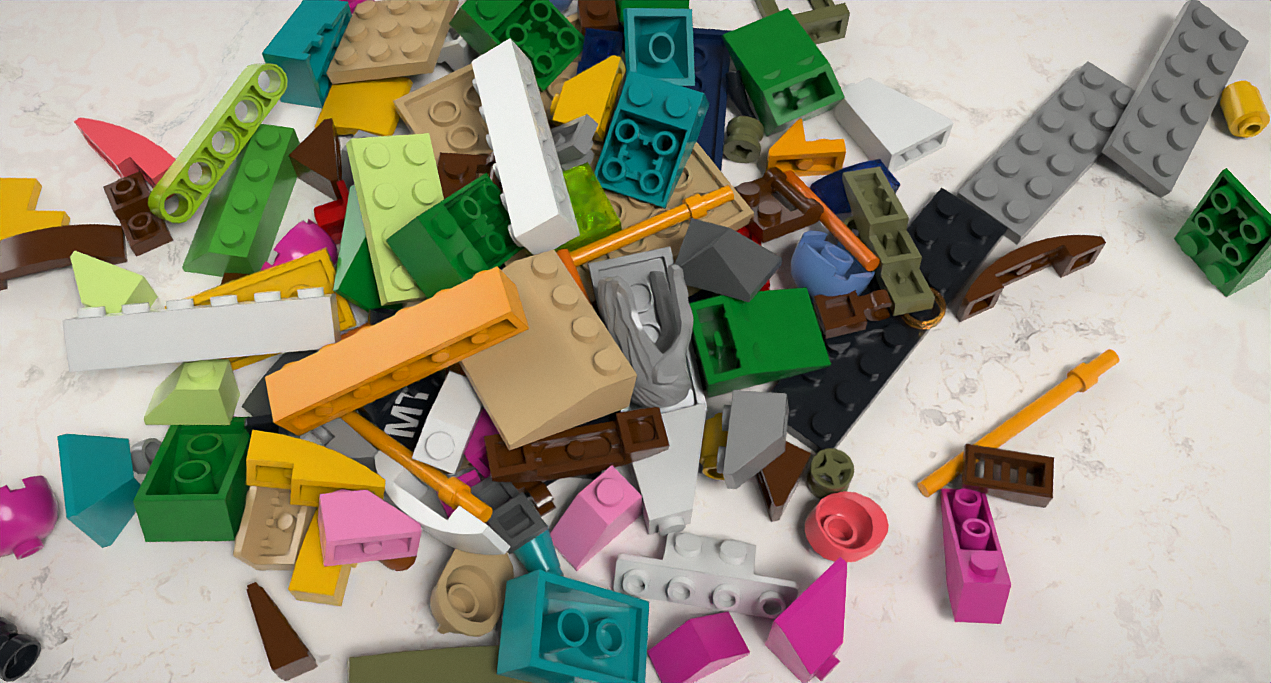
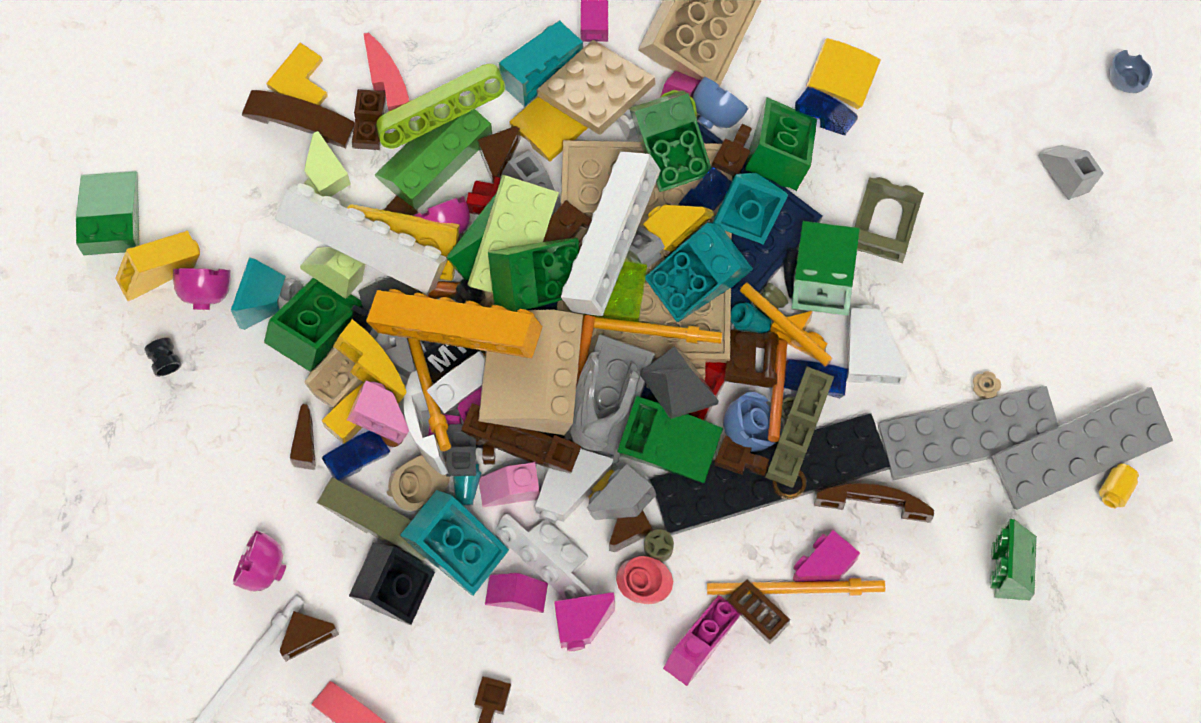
camera: 35 degrees right, 10 degrees up
(363, 609) = (355, 455): none -> clear blue slope
(738, 164) = (748, 318): none -> teal cone
(786, 143) = (788, 326): none -> light orange bar
(1029, 96) = (986, 392): none -> tan plate
(1033, 363) = (828, 562): none -> dark pink slope

